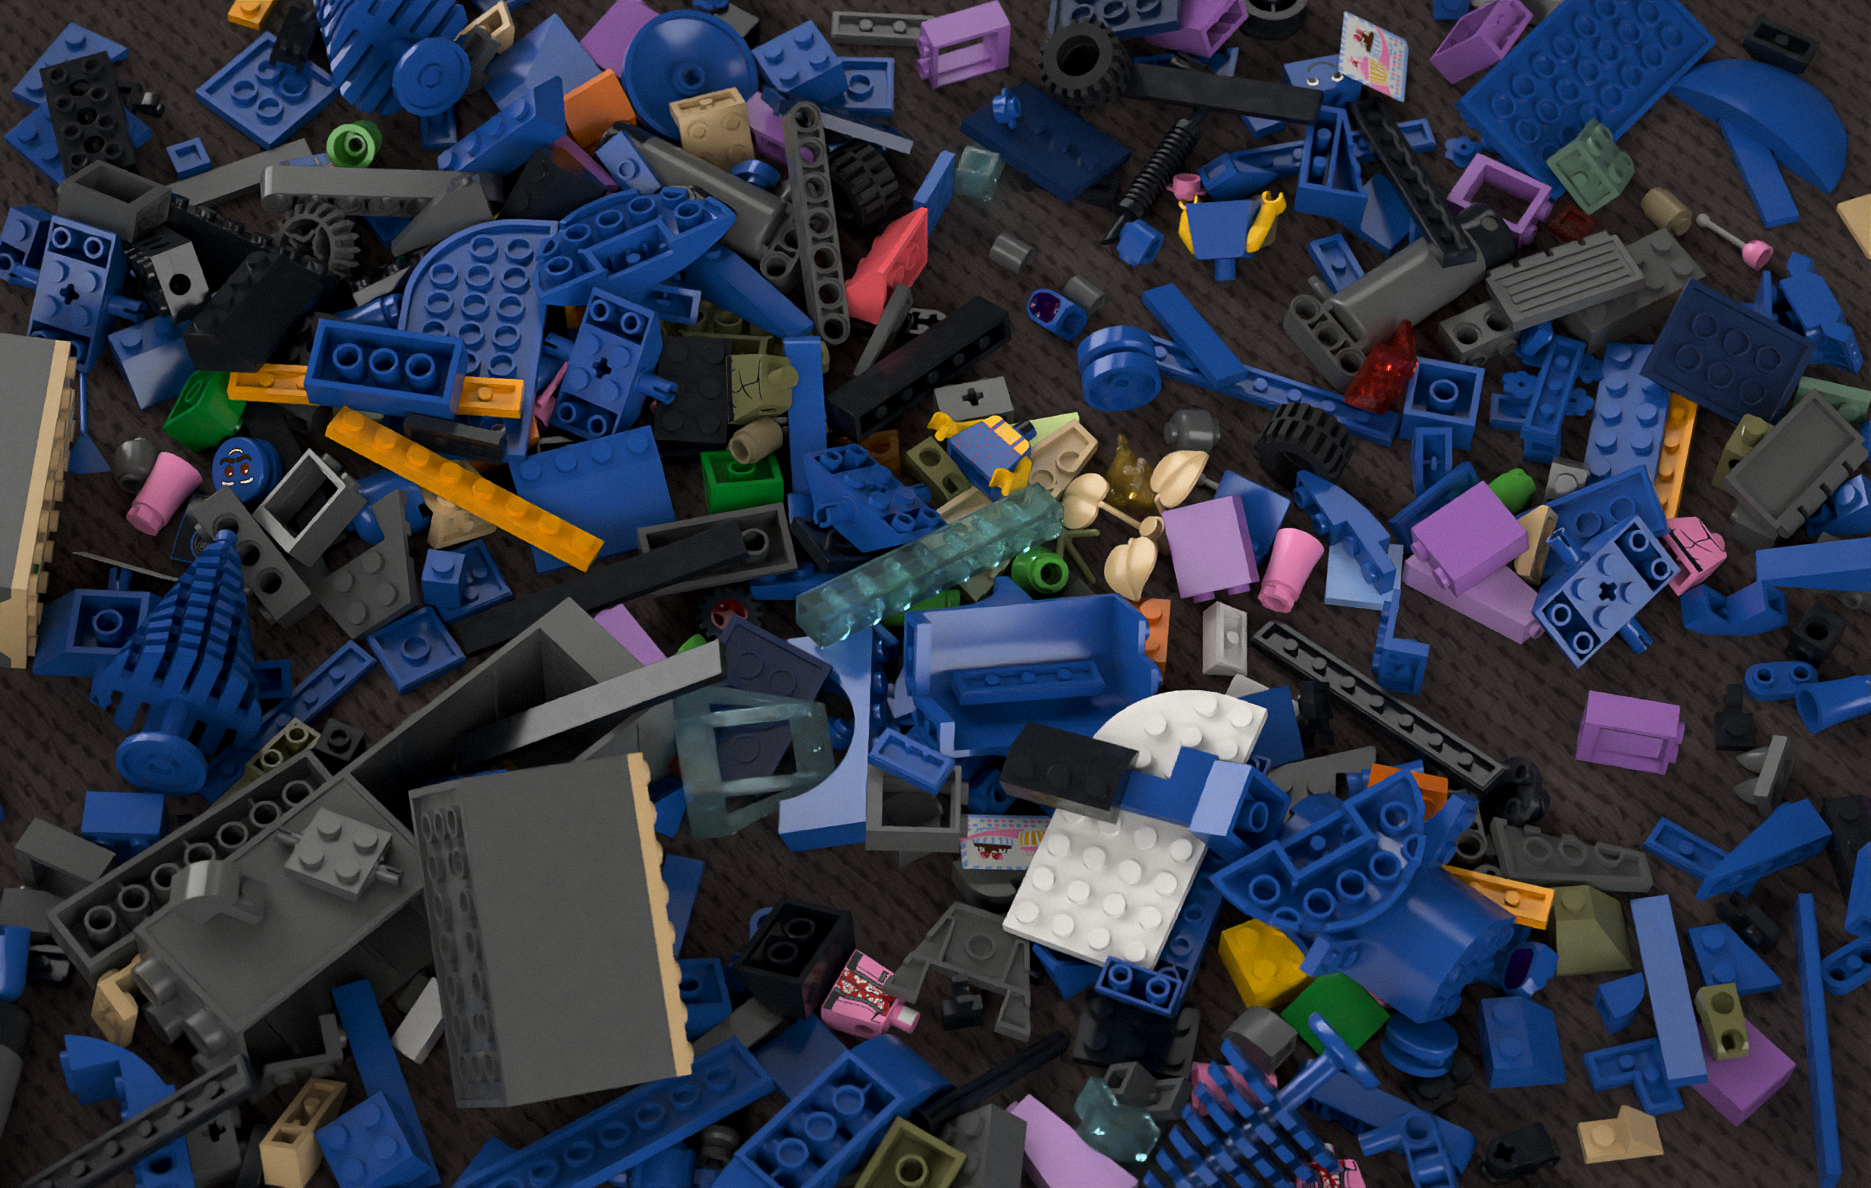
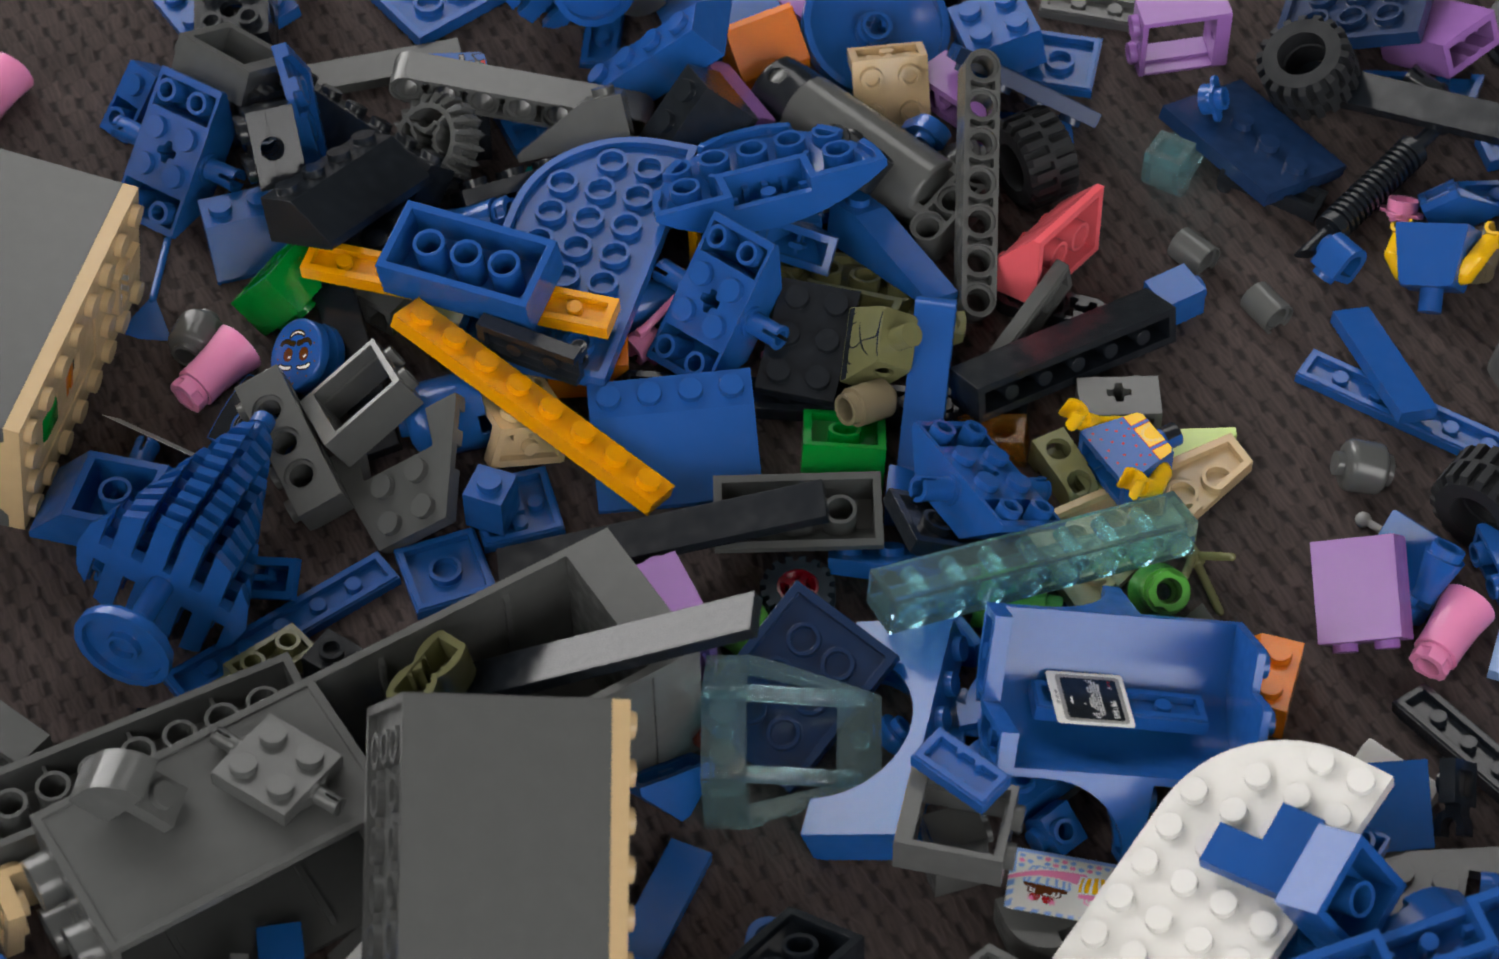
camera: 15 degrees right, 5 degrees down
(125, 821) = (72, 701): blue brick -> none
(180, 216) = (300, 91): none -> blue wing
(188, 158) = (333, 41): blue plate -> none
(345, 150) = (504, 45): bright green plant -> none
(448, 750) = (438, 667): none -> olive brick
(629, 165) = (787, 98): blue plate -> none
(937, 189) = (1120, 173): blue tile -> none
(1003, 680) = (1089, 699): none -> sticker
(1007, 292) = (1181, 290): none -> brick
(1056, 313) = (1232, 320): blue rock -> none
(1068, 771) = (1144, 812): black slope -> none
(1118, 369) = (1289, 385): blue wheel -> none
(1129, 479) = (1286, 509): clear yellow hair -> none
(1132, 564) = (1266, 595): tan plant -> none
(1224, 640) = (1362, 701): white slope -> none
(1271, 517) = (1438, 568): none -> blue cone

